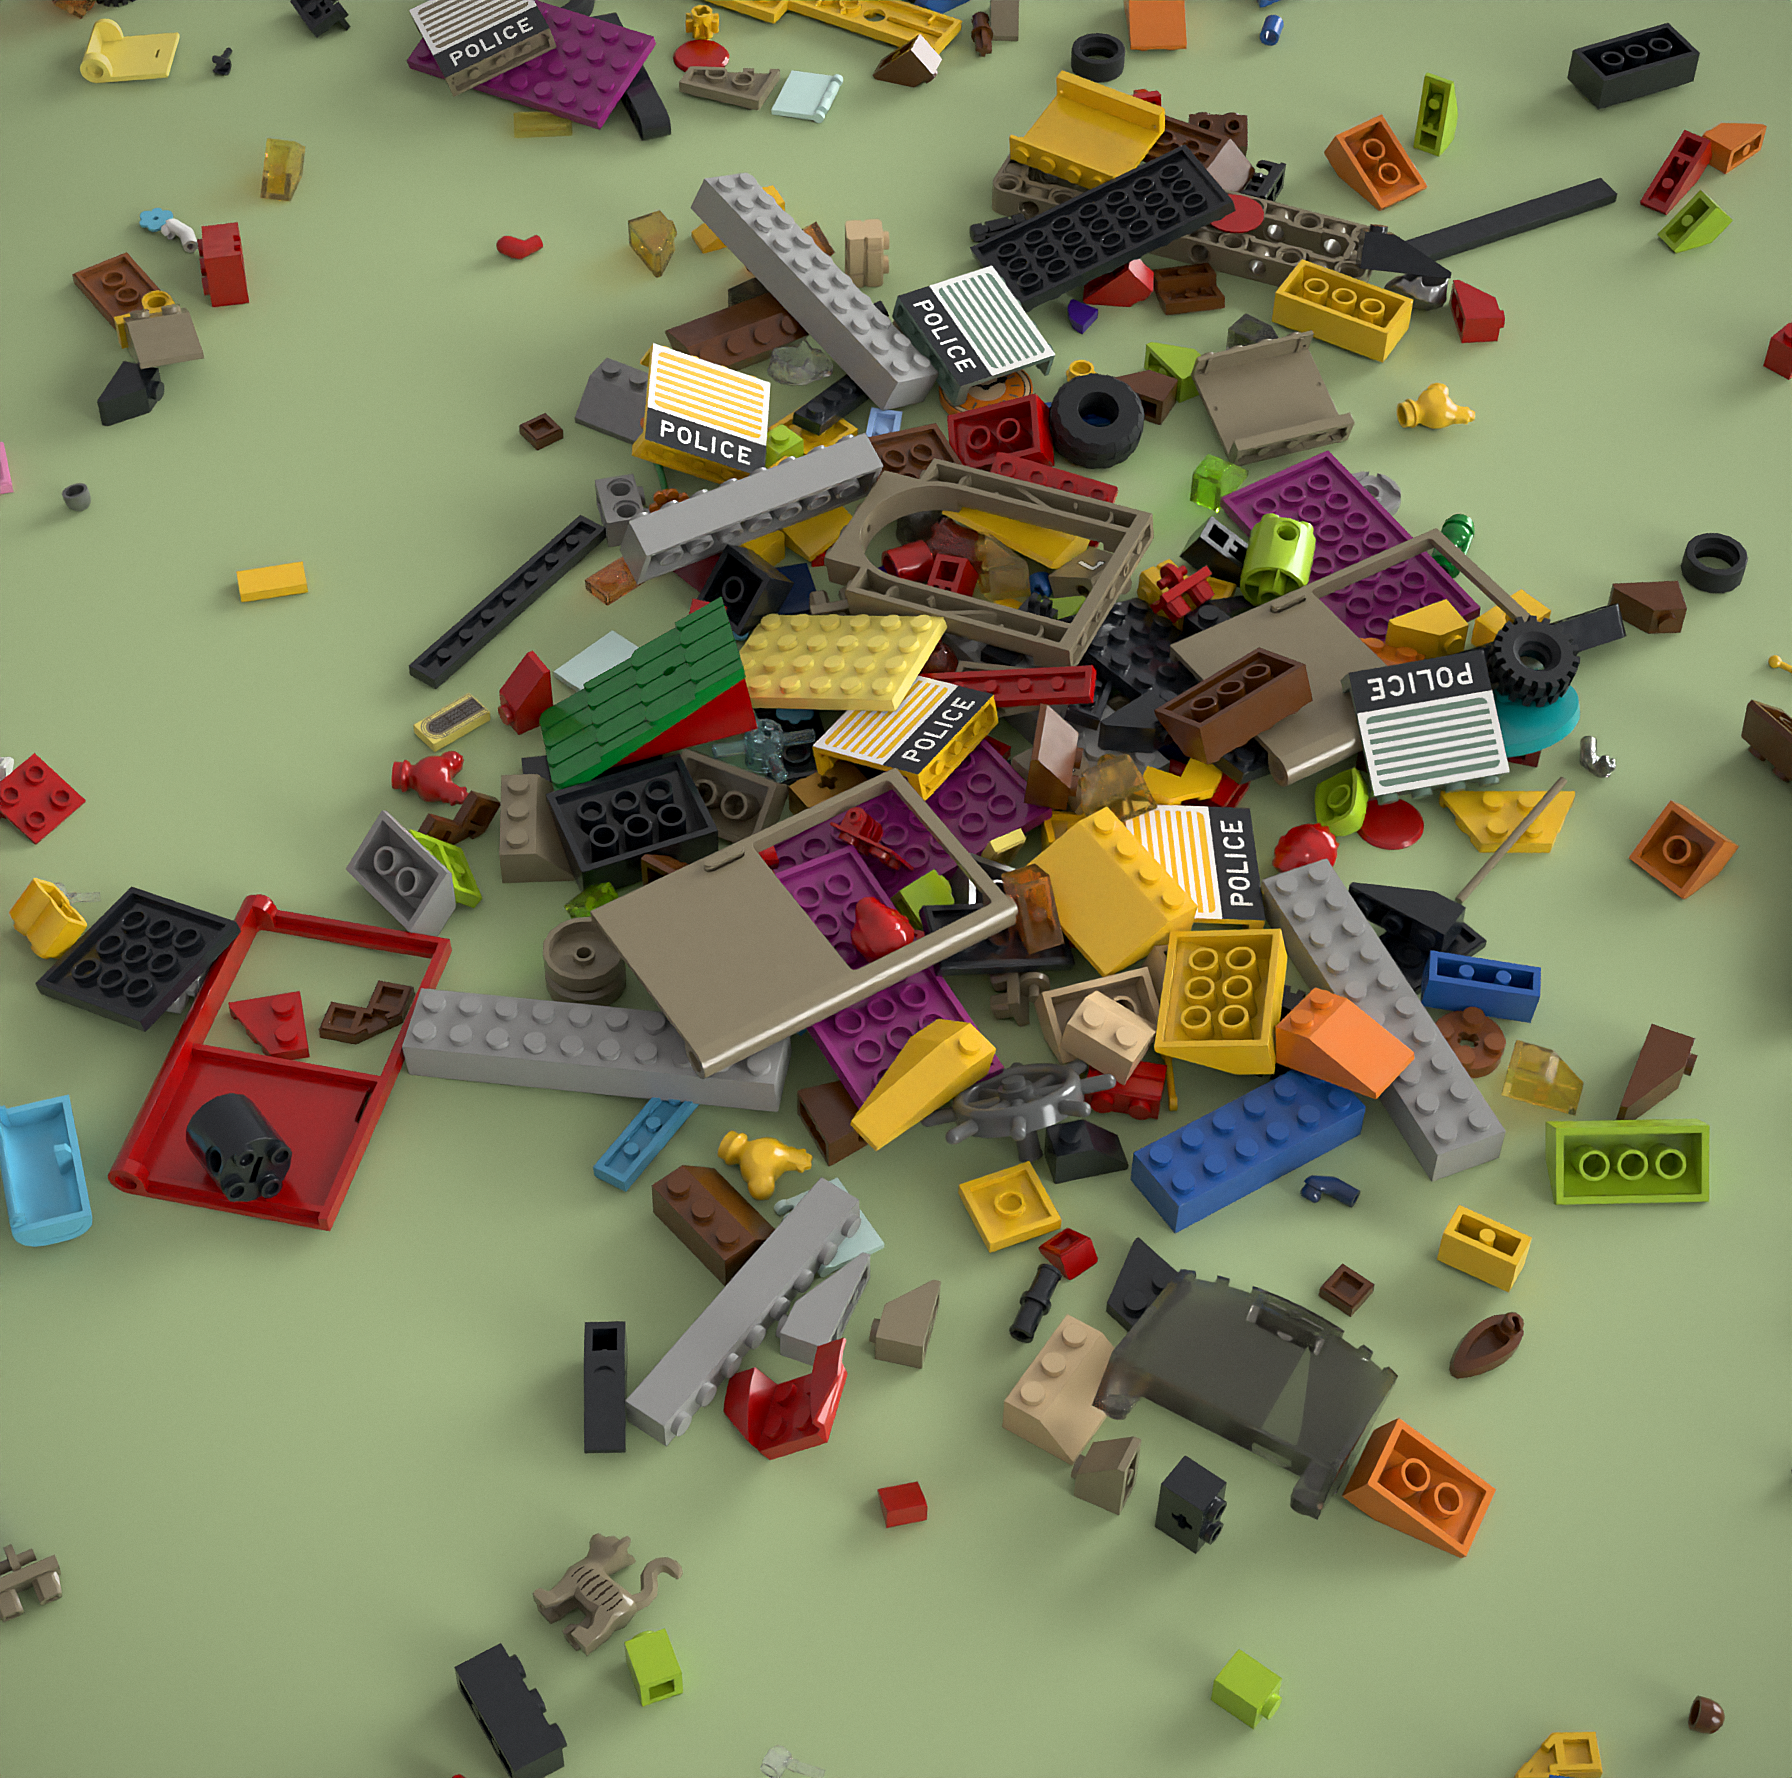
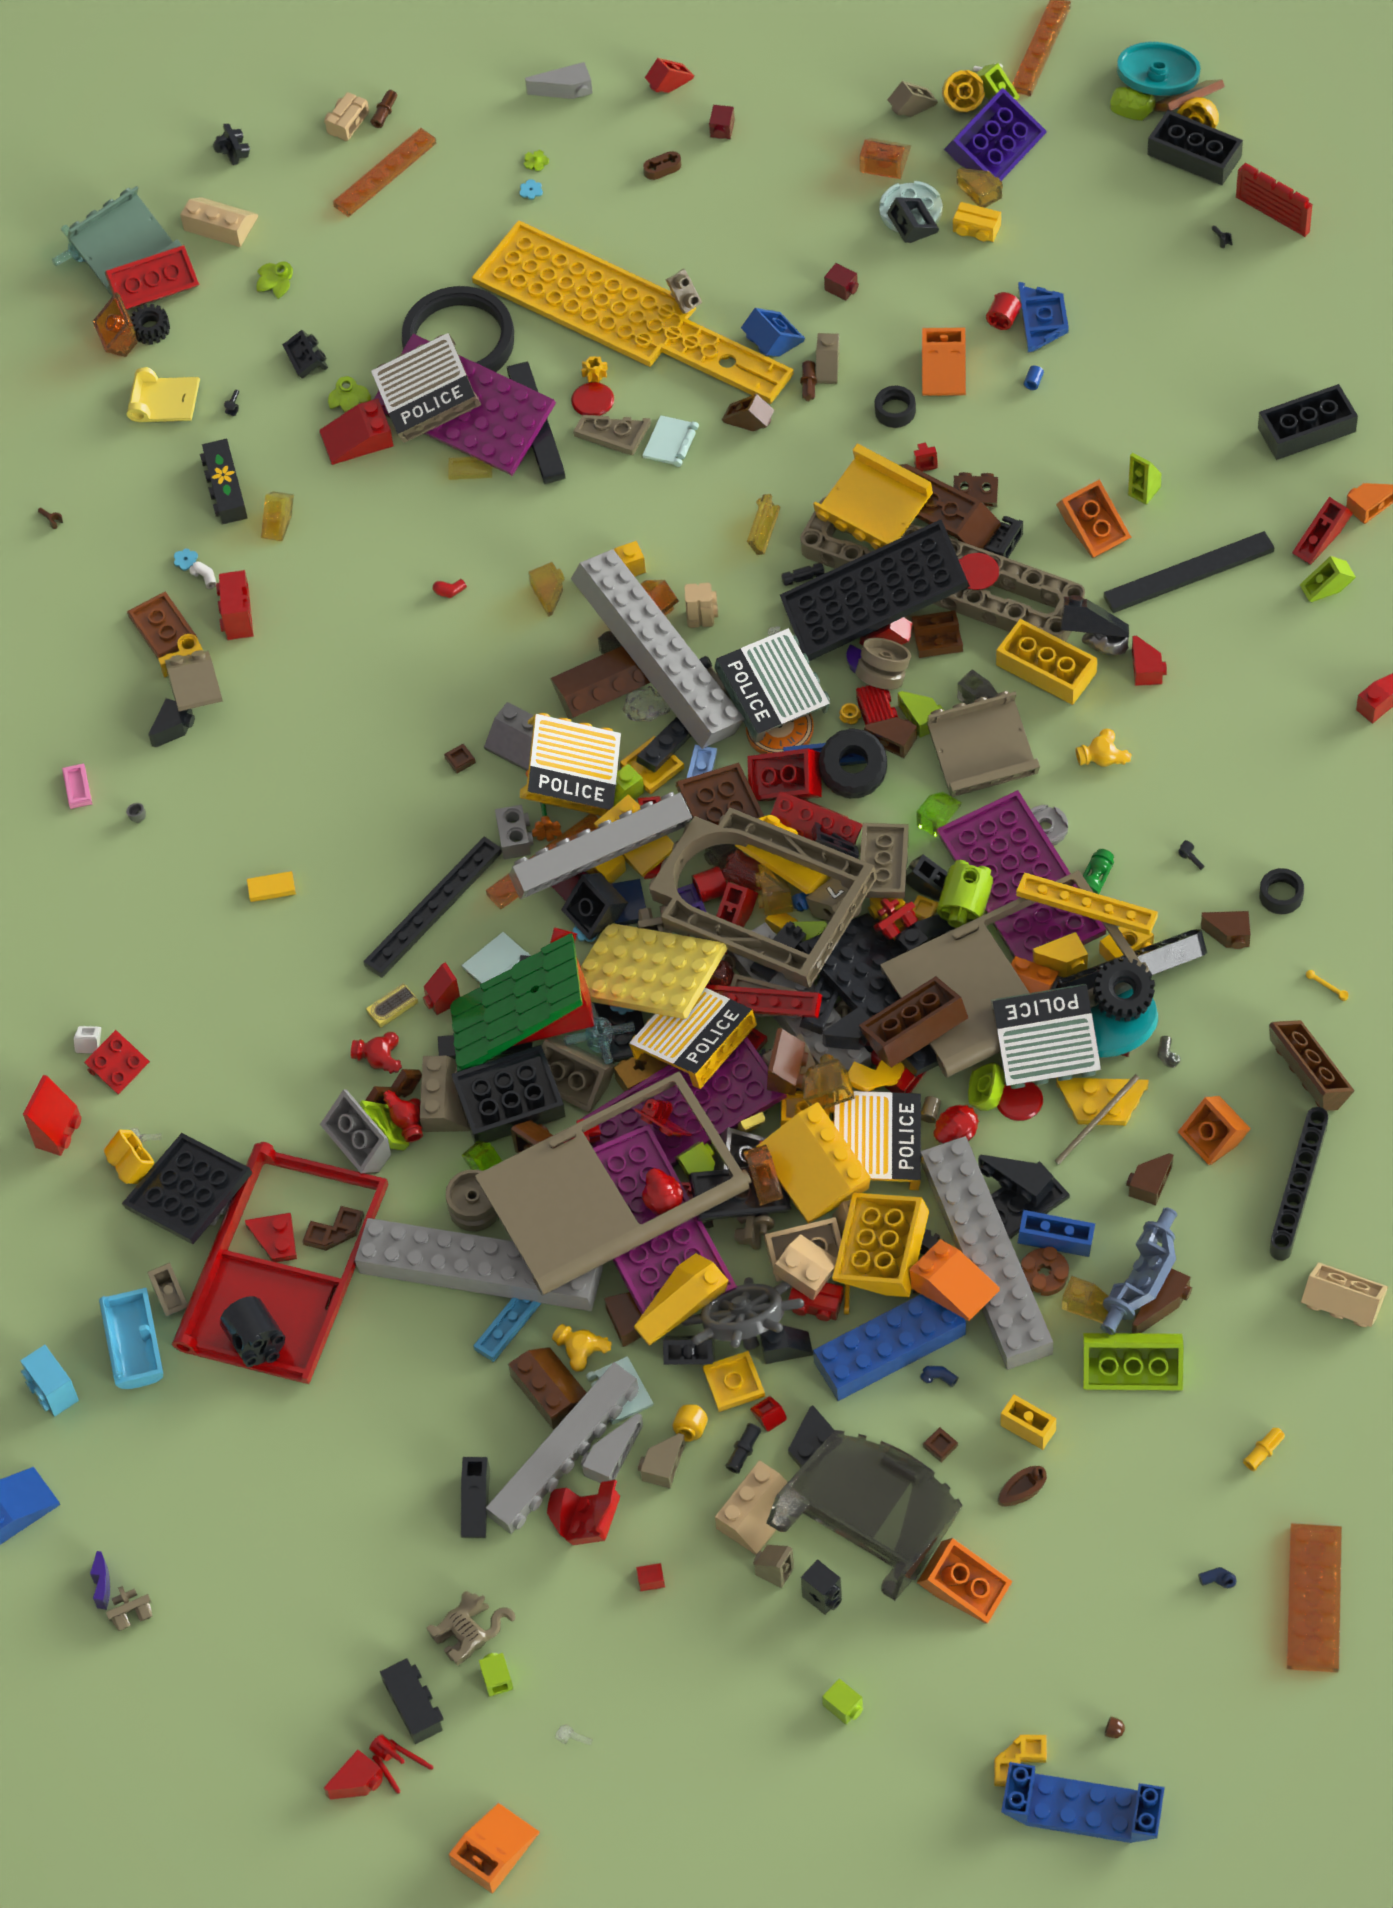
camera: 10 degrees right, 10 degrees up
(102, 1097) = (167, 1289): none -> dark tan slope
(209, 137) = (224, 481): none -> black brick
(378, 52) = (348, 397): none -> lime plate
(392, 86) = (357, 432): none -> red slope
(476, 856) = (405, 1115): none -> red animal
(936, 1161) = (683, 1351): none -> black brick
(939, 175) = (763, 524): none -> clear yellow hinge
(947, 1262) = (690, 1421): none -> yellow head
(1114, 356) = (875, 704): none -> red brick
(1122, 311) = (883, 663): none -> dark tan wheel
(1170, 525) = (887, 850): none -> dark tan hinge
(1264, 834) = (930, 1109): none -> dark tan hinge
(1459, 561) = (1087, 903): none -> yellow plate
(1570, 522) = (1185, 852): none -> black hand
(1602, 916) = (1150, 1179): none -> reddish brown slope
(1628, 1037) = (1147, 1273): none -> sand blue plate

